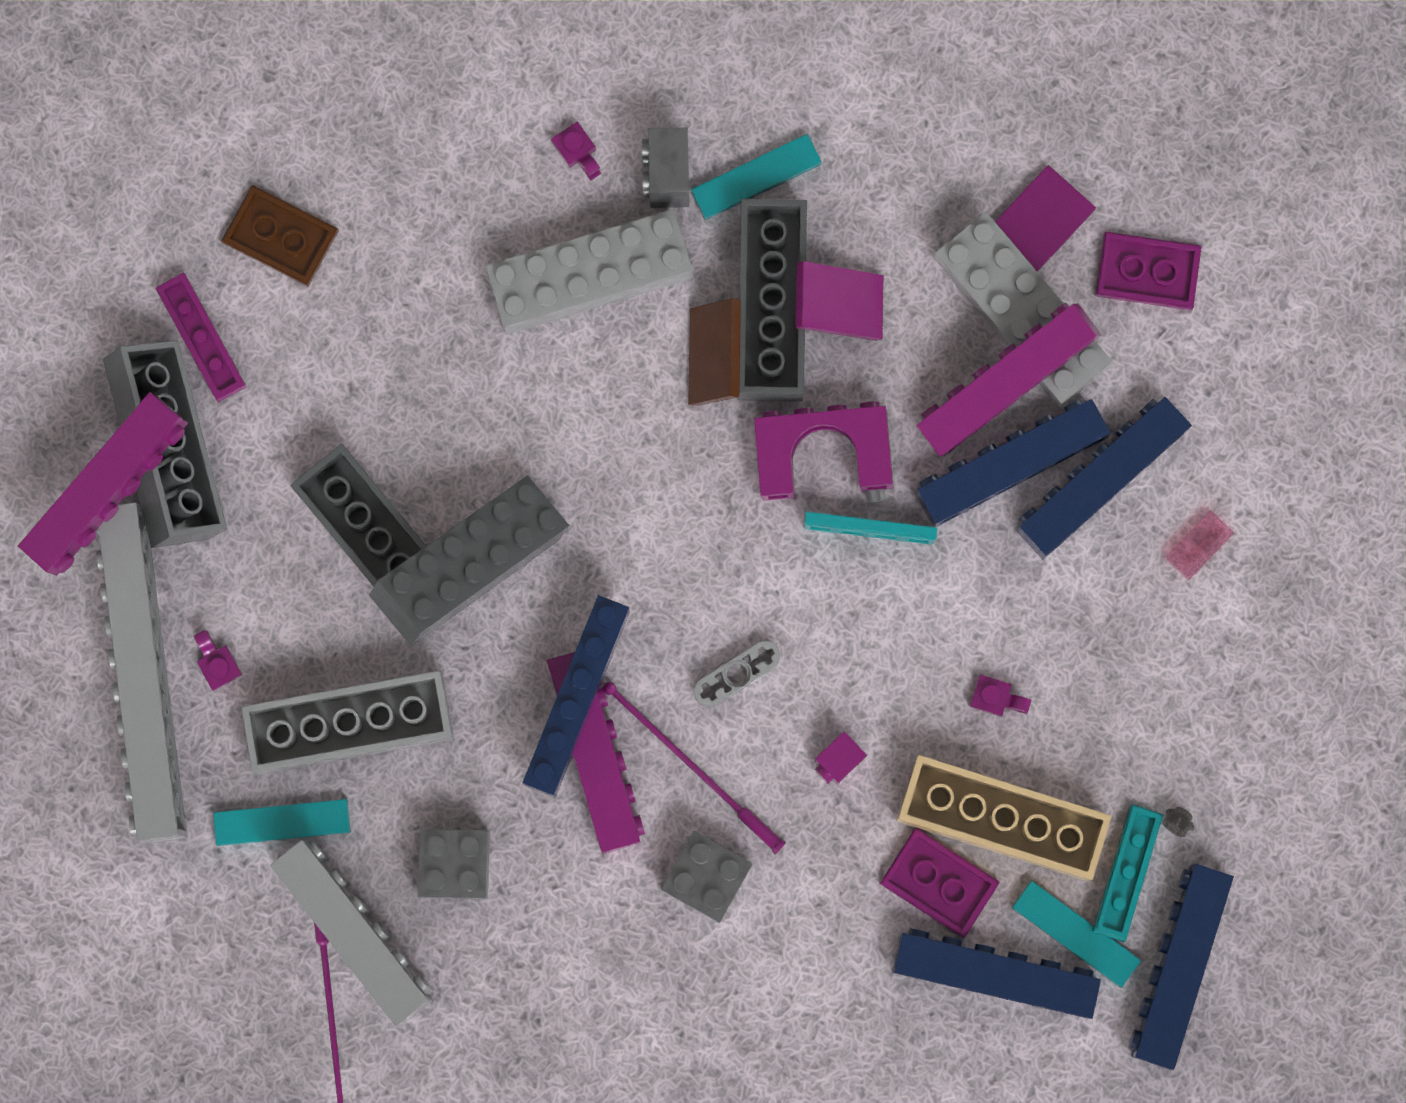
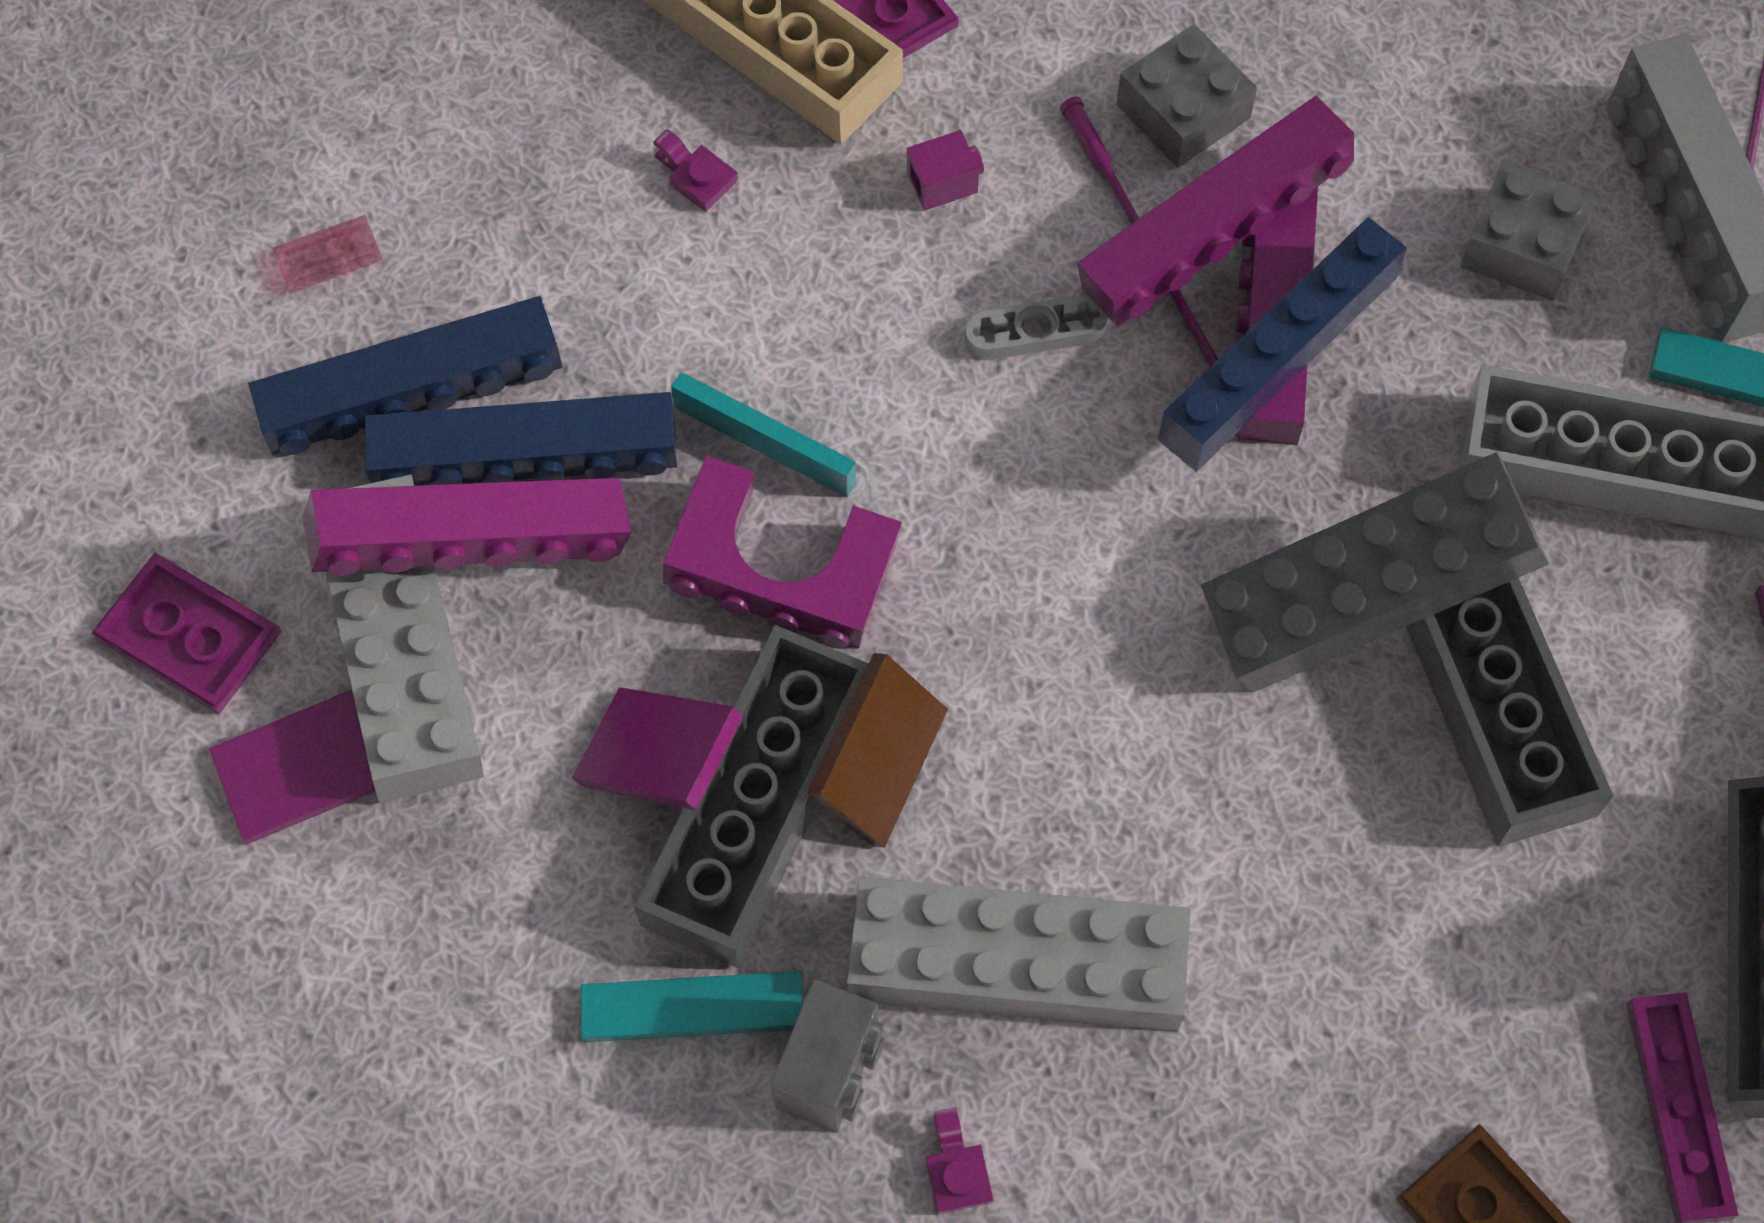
camera: 155 degrees left, 15 degrees down
(651, 779) = (1217, 211): none -> magenta brick

